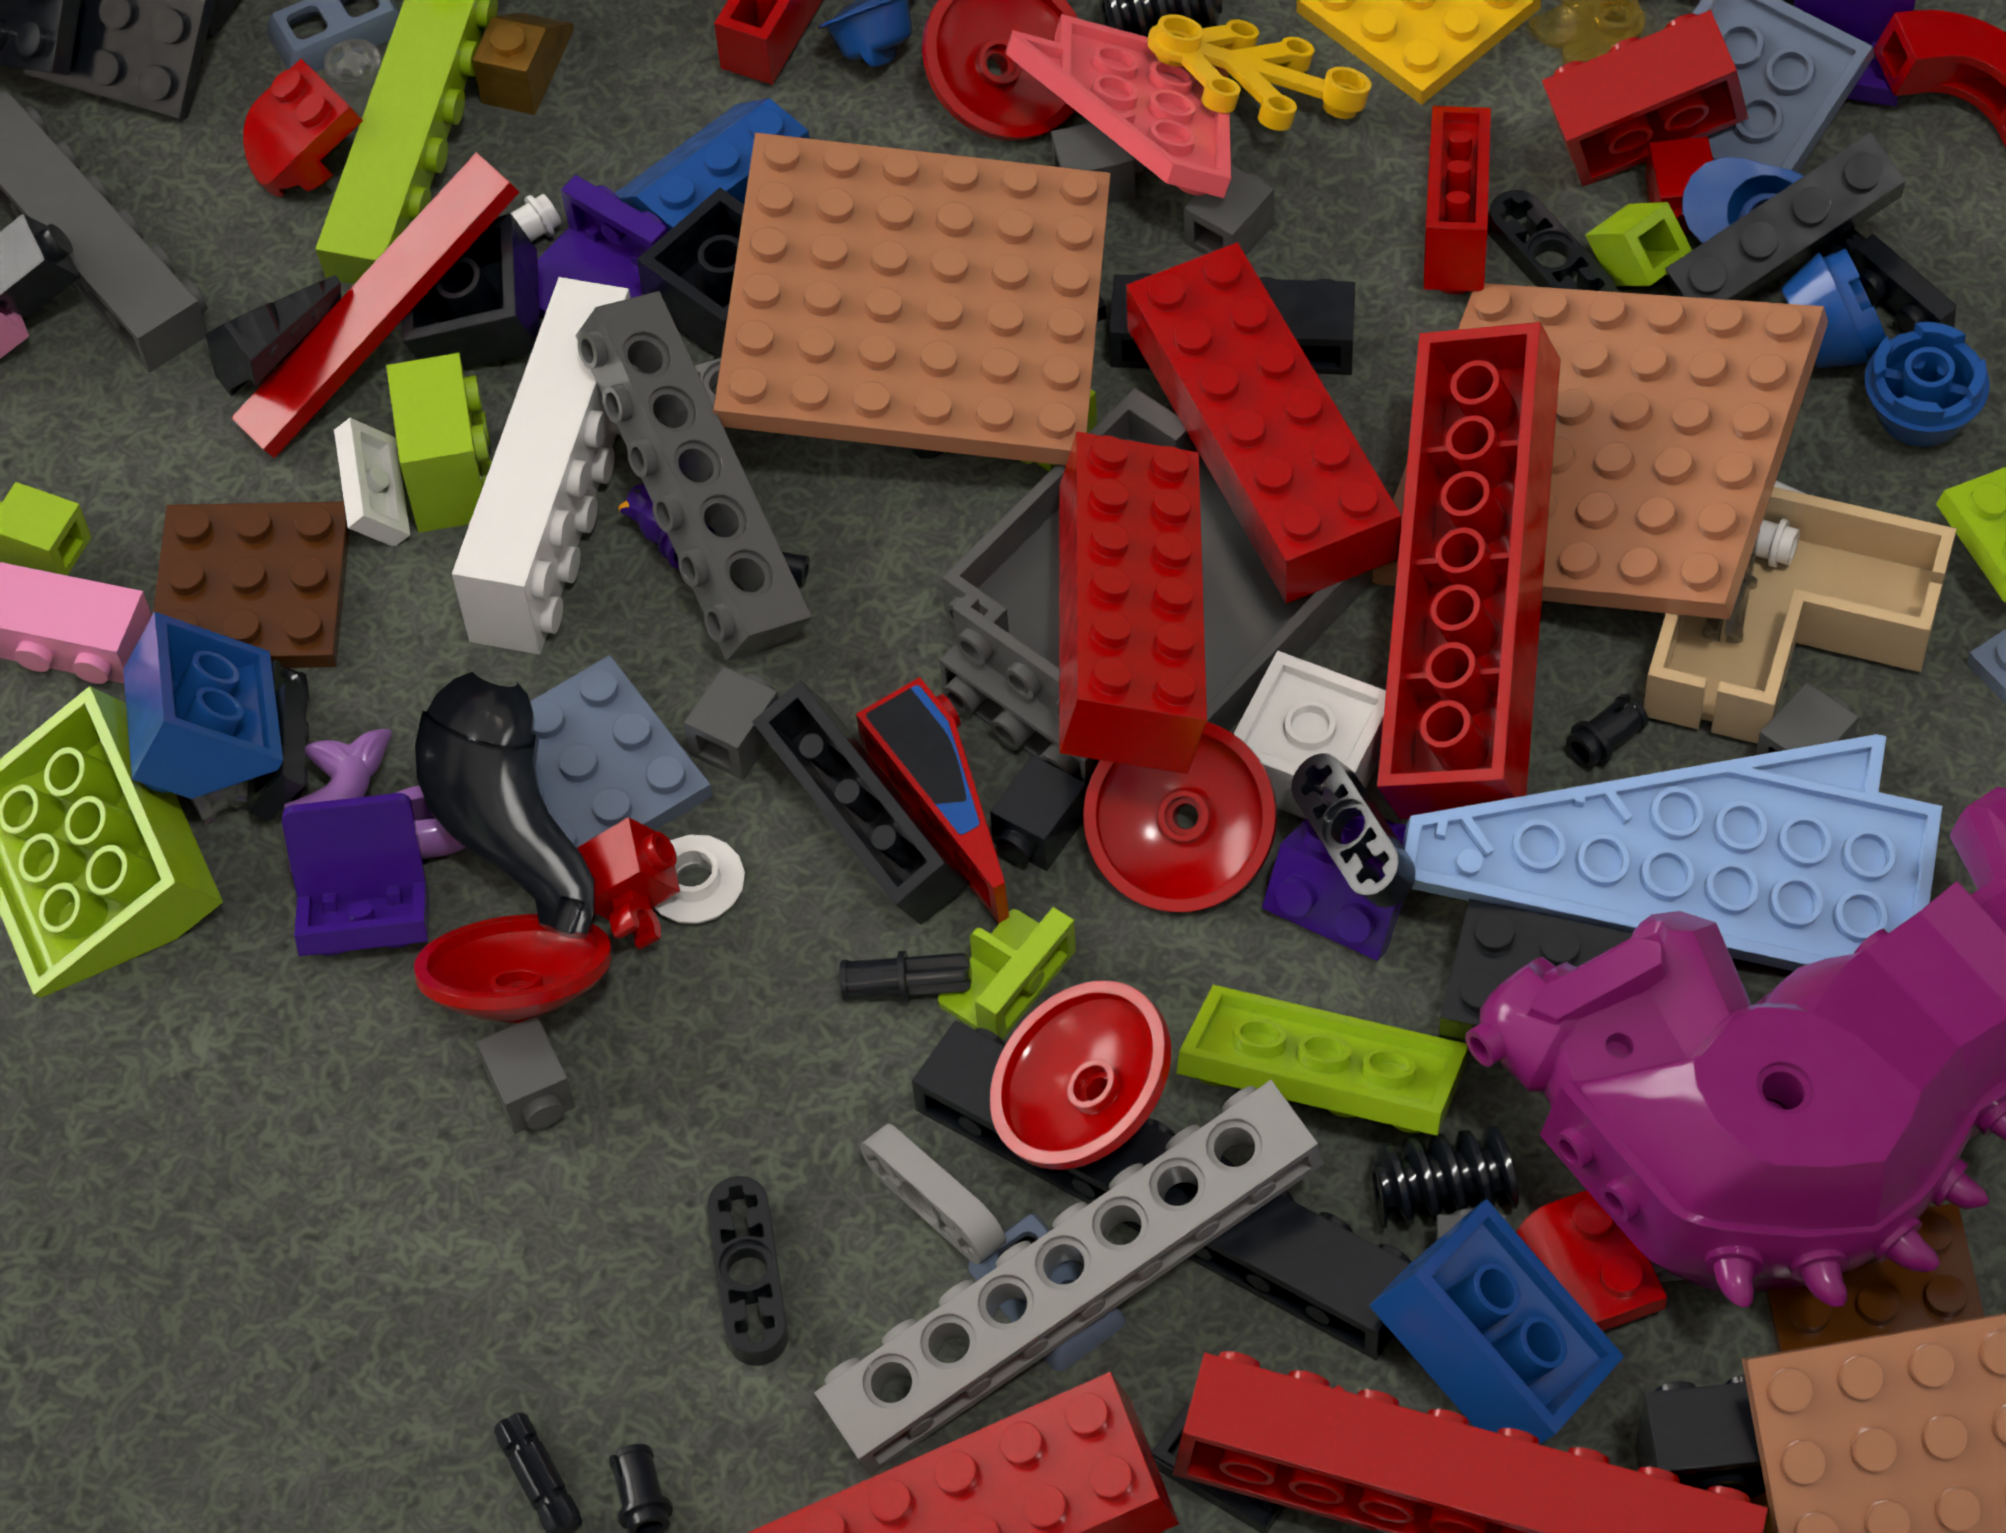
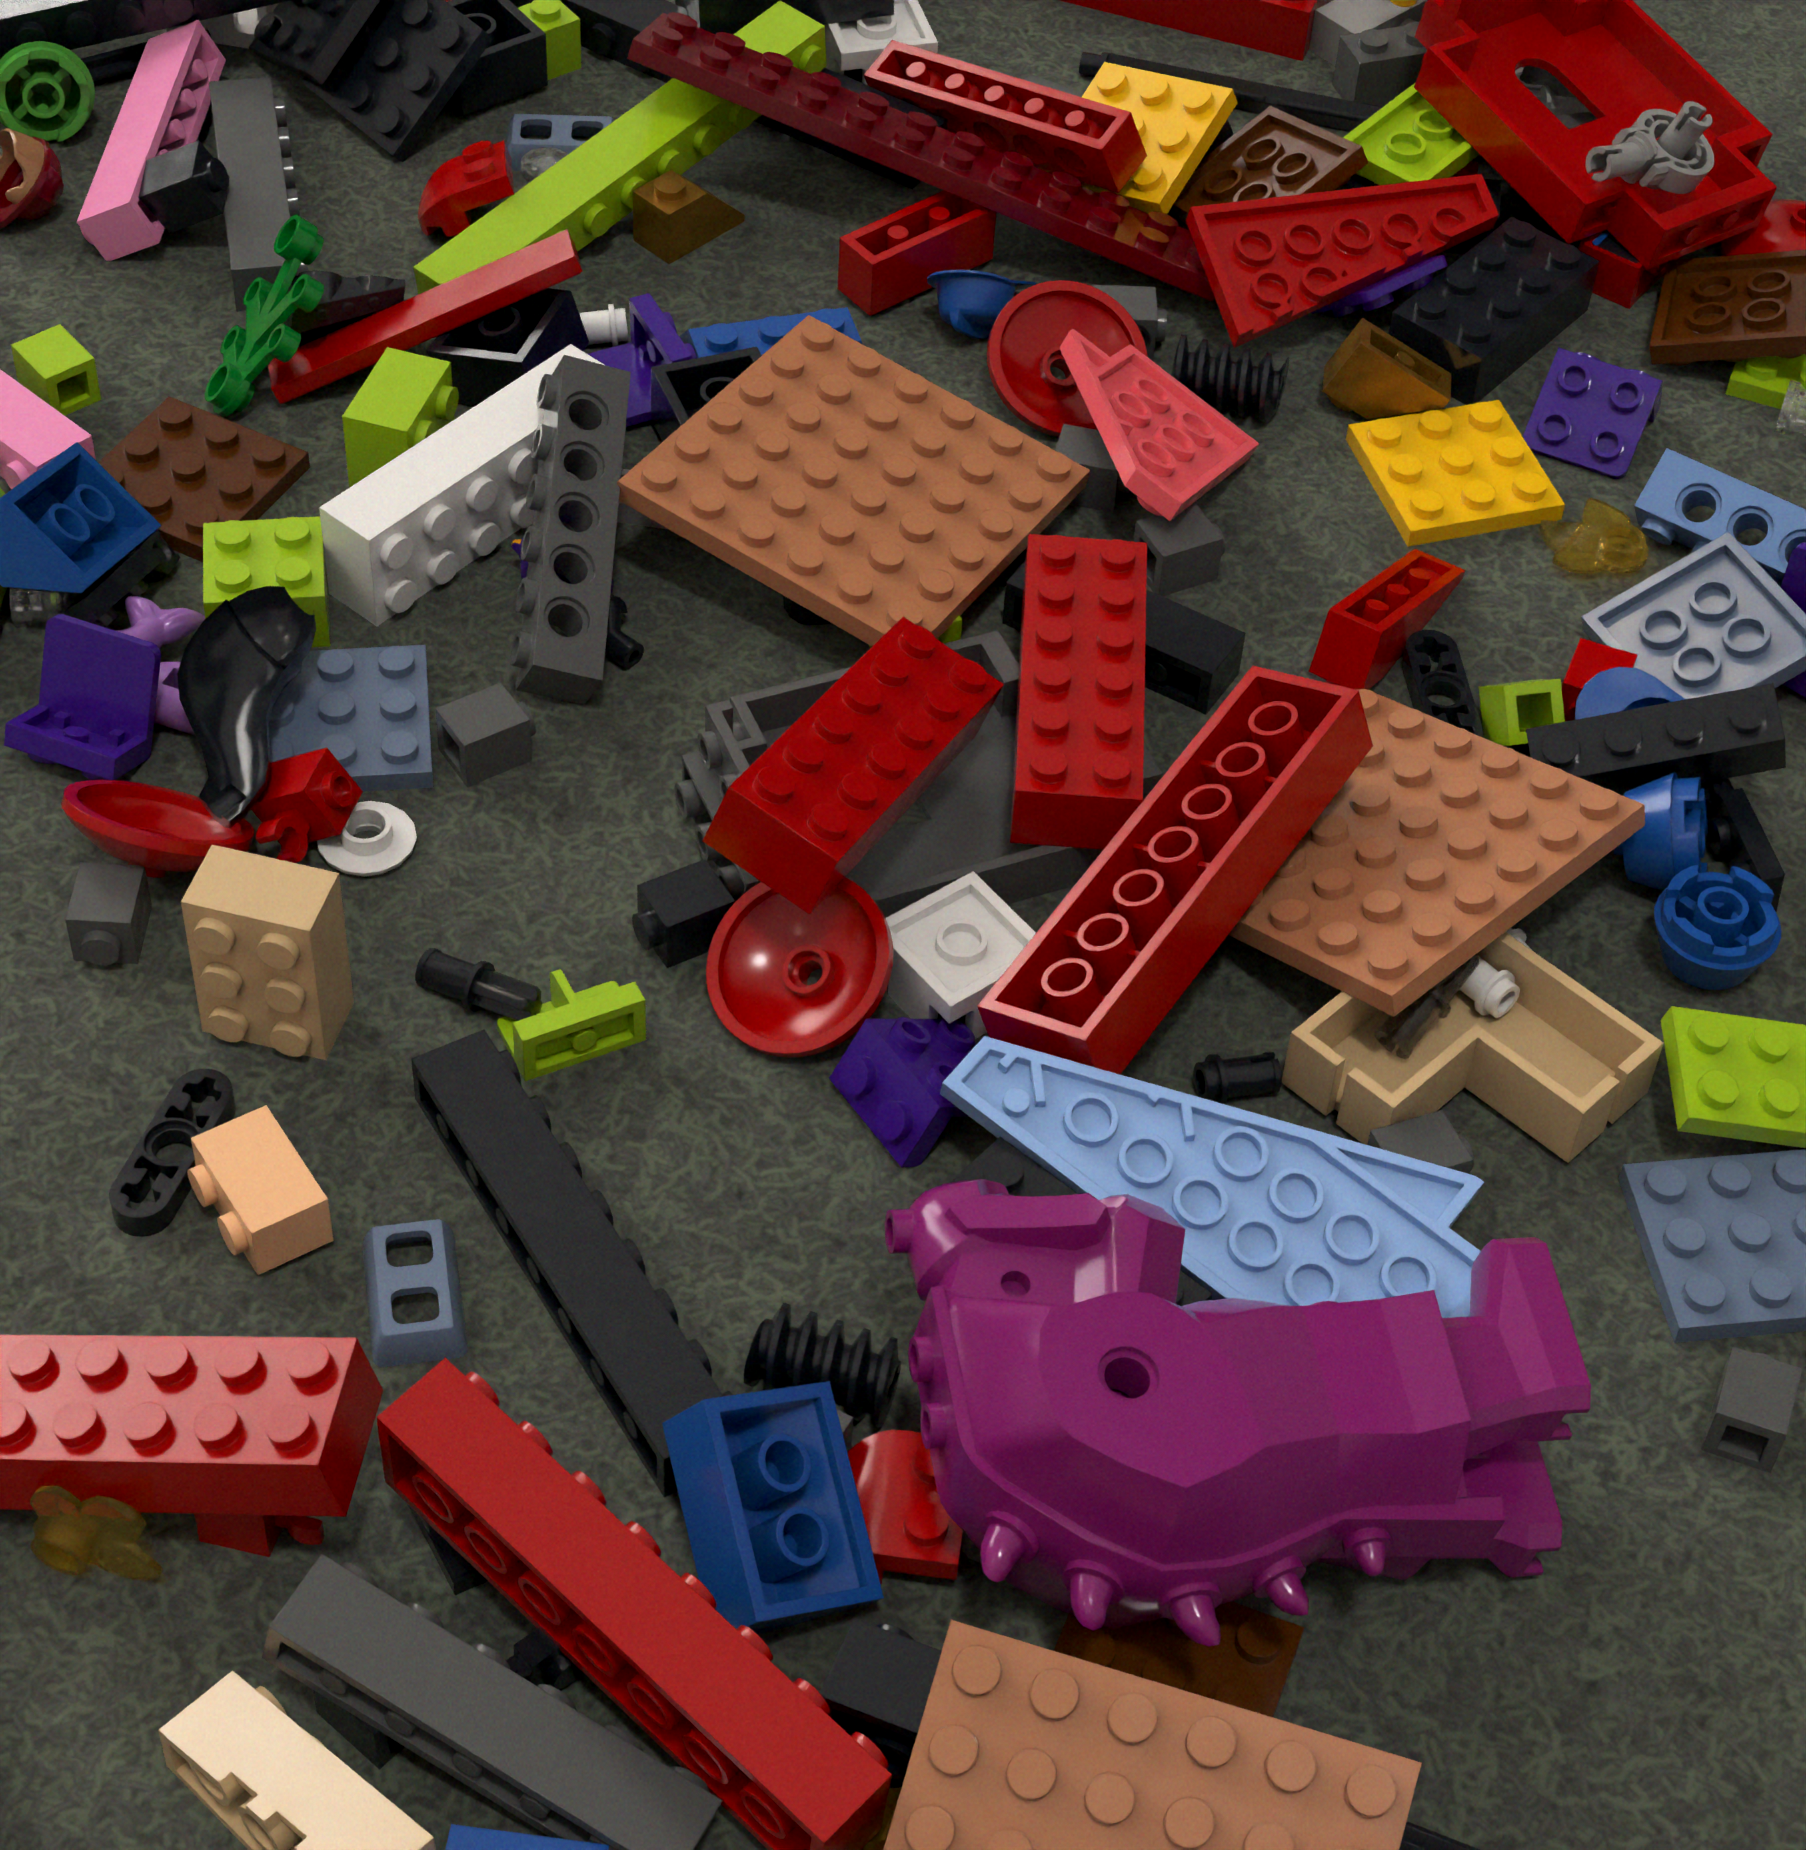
camera: 20 degrees right, 10 degrees down
(220, 456) = (266, 310): none -> green plant
(371, 482) = (322, 453): white plate -> none
(409, 653) = (268, 553): none -> lime brick
(729, 1047) = (268, 952): none -> tan brick
(861, 803) = (537, 836): black brick -> none
(861, 1267) = (260, 1190): none -> light nougat brick
(922, 755) = (620, 848): slope -> none
(933, 1193) = (366, 1160): light grey beam -> none
(1055, 1311) = (456, 1288): light grey brick -> none
(1080, 1075) = (541, 1108): red dish -> none
(1185, 43) = (1219, 406): yellow plant -> none
(1324, 1059) = (782, 1214): lime plate -> none
(1375, 839) = (928, 1029): black beam -> none
(1645, 92) = (1594, 587): red brick -> none

